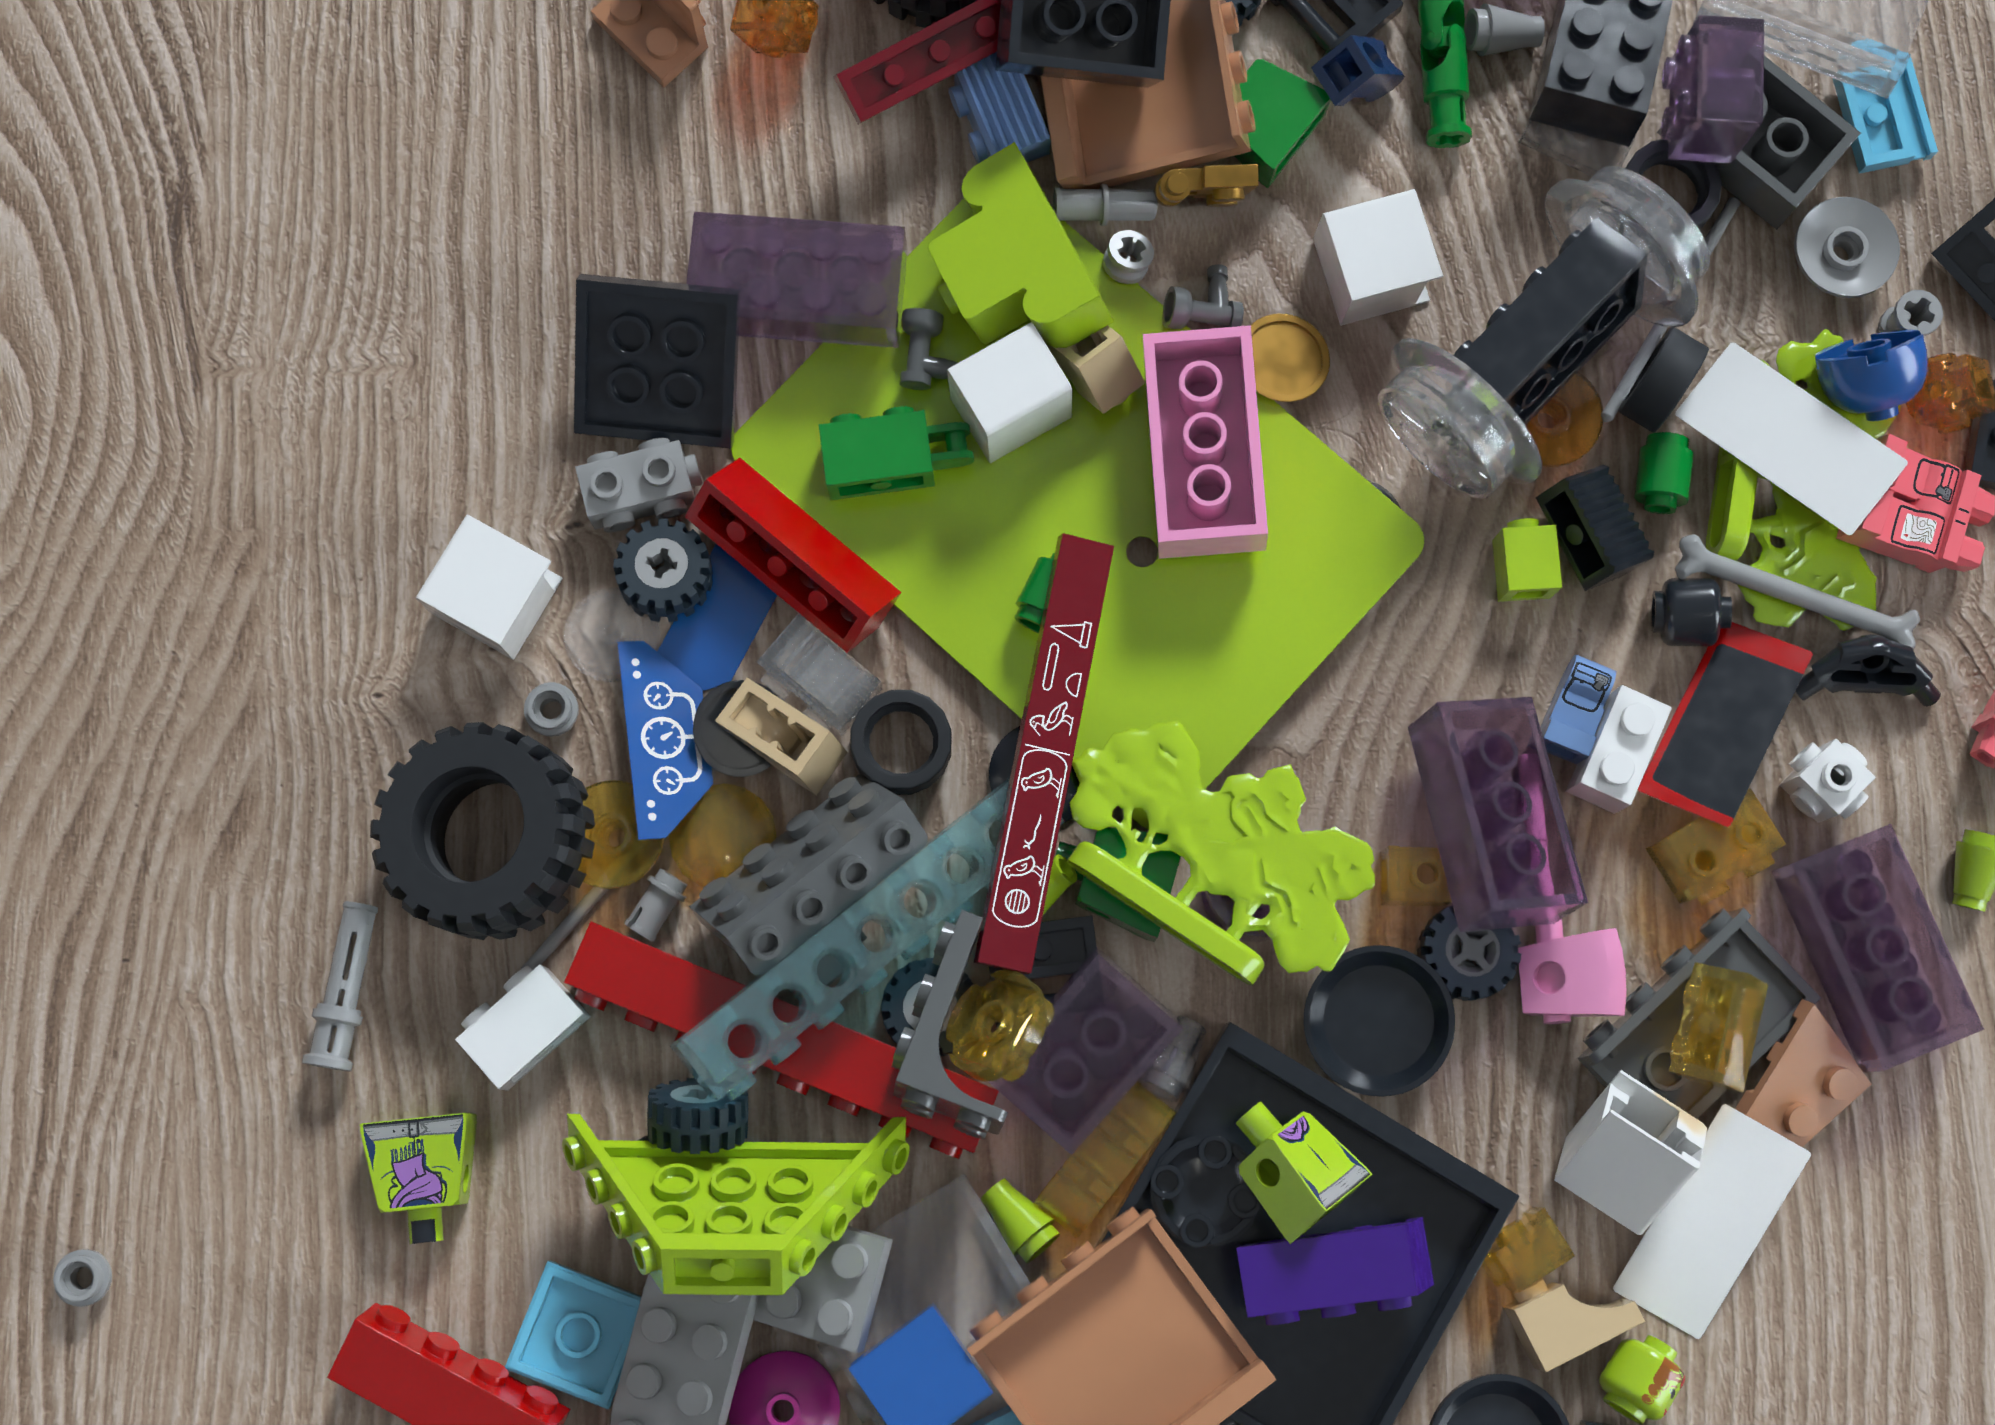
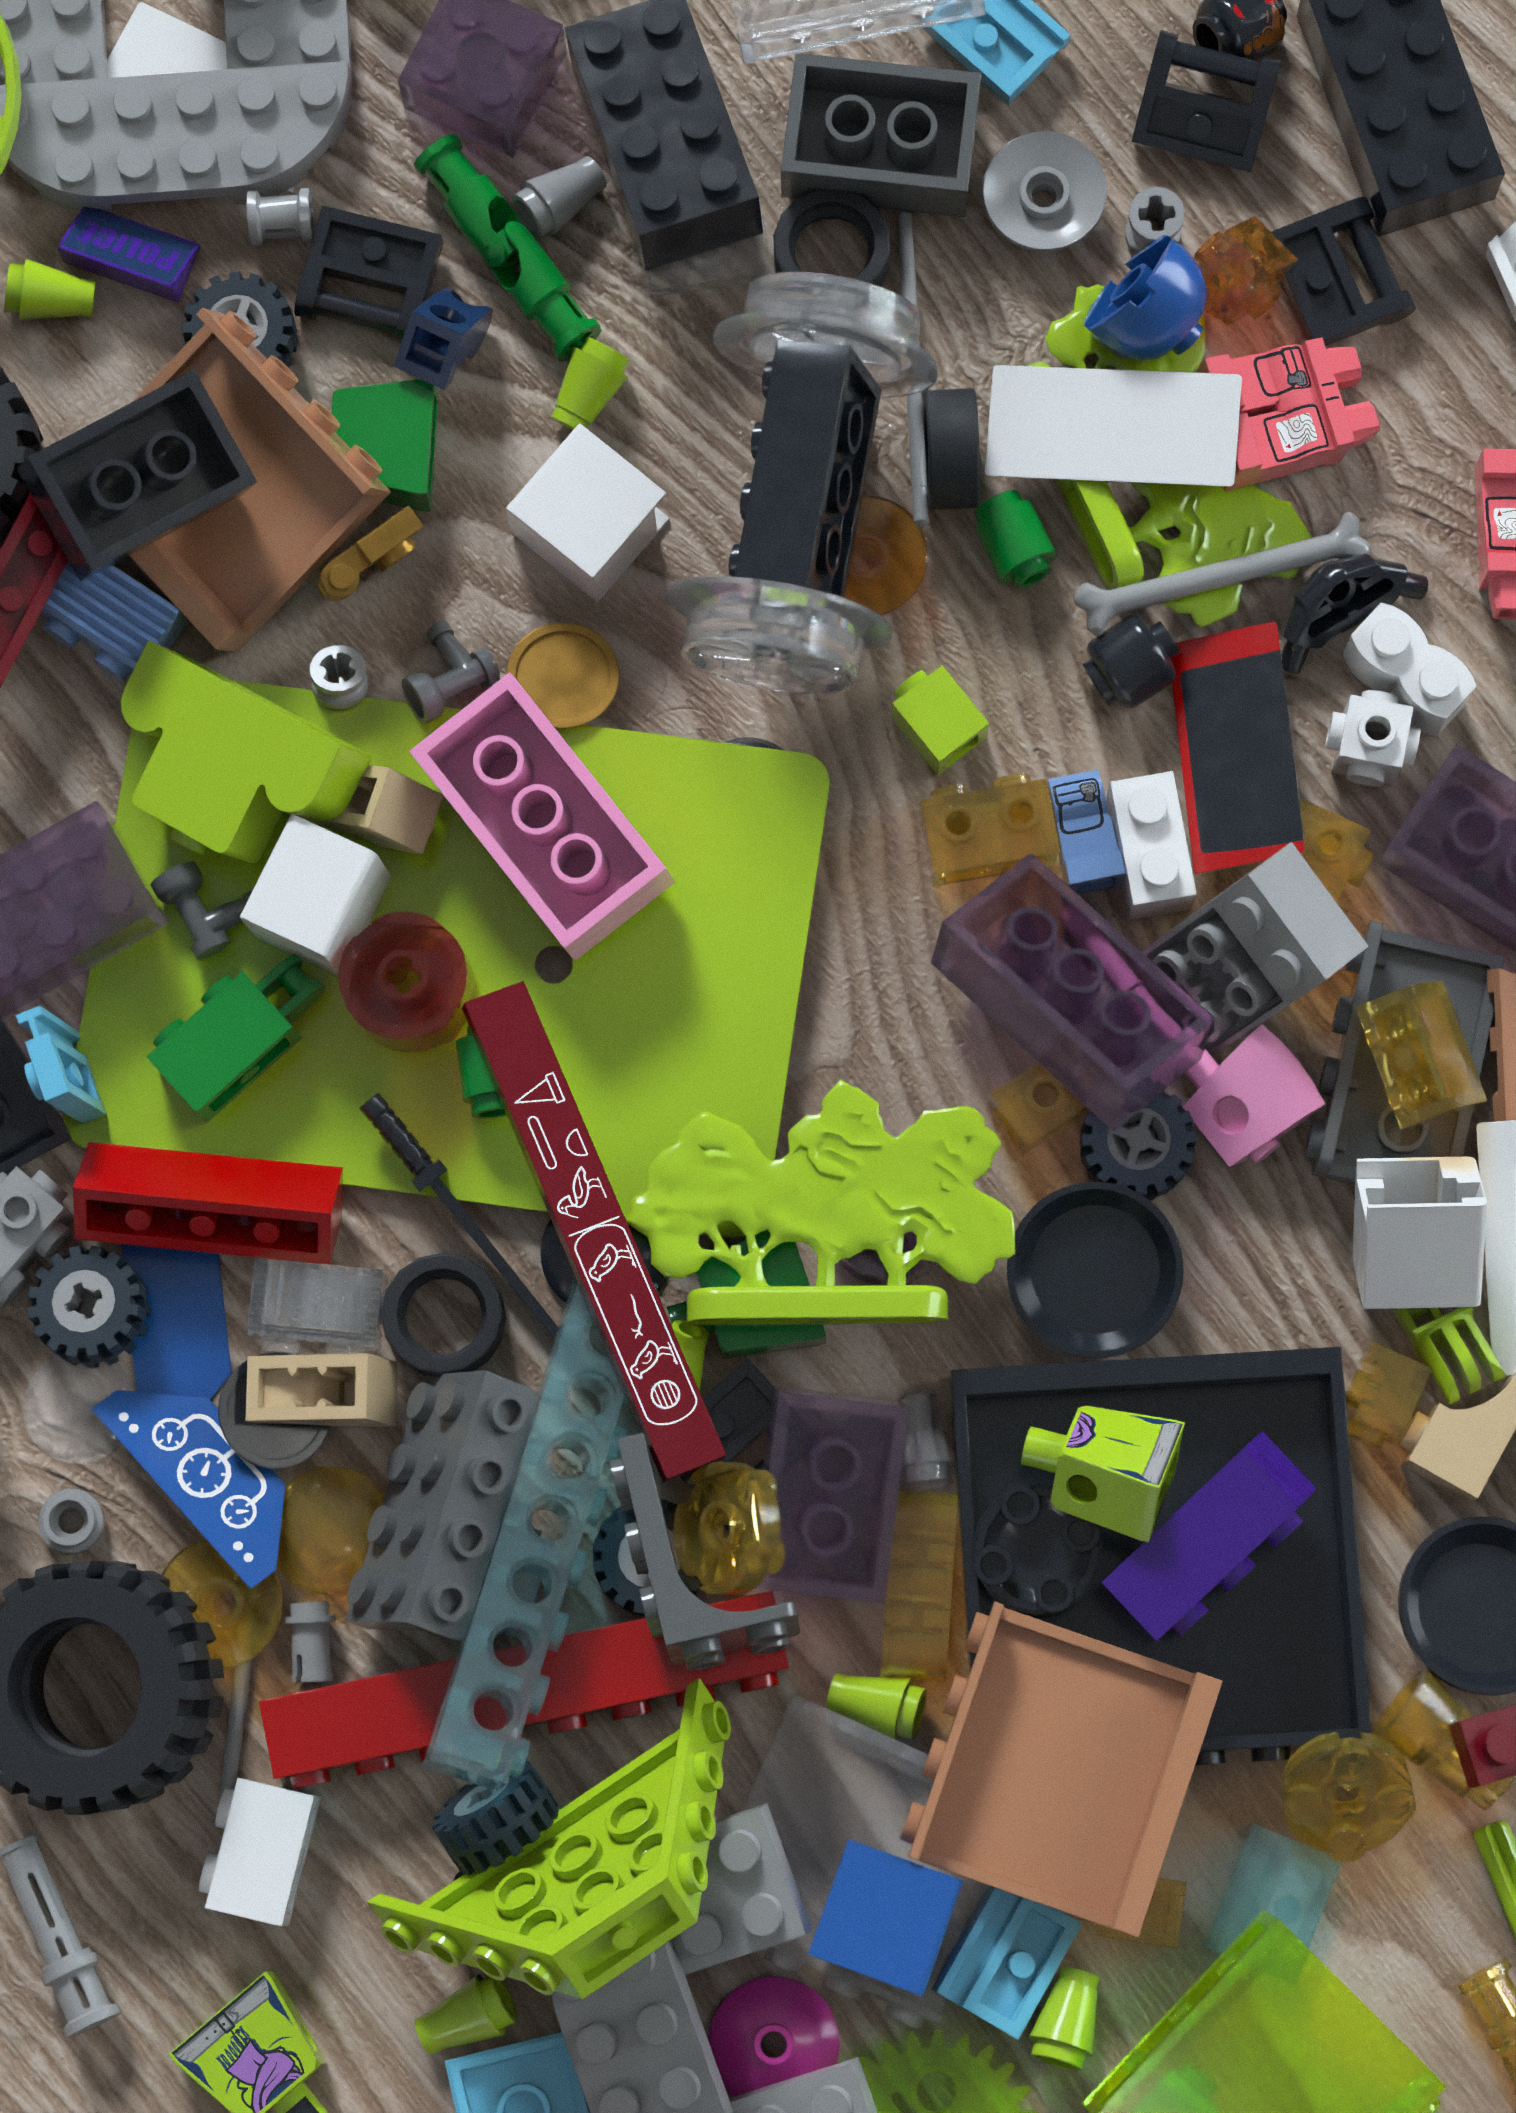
camera: 25 degrees left, 0 degrees up
(583, 1241) = (469, 2015): none -> lime cone
(752, 392) = (57, 1069): none -> medium azure plate
(957, 635) = (427, 1173): none -> black sword
(1028, 466) = (385, 955): none -> clear red brick
(1105, 204) = (279, 639): light grey axle -> none
(1438, 170) = (589, 383): none -> lime cone
(1510, 661) = (987, 829): none -> clear yellow brick
(1595, 527) = (982, 639): black brick -> none
(1598, 1250) = (1445, 1335): none -> lime arm
(1653, 871) = (1258, 946): none -> light grey slope
(1714, 89) = (807, 133): clear purple brick -> none
(1886, 734) = (1395, 658): none -> white brick

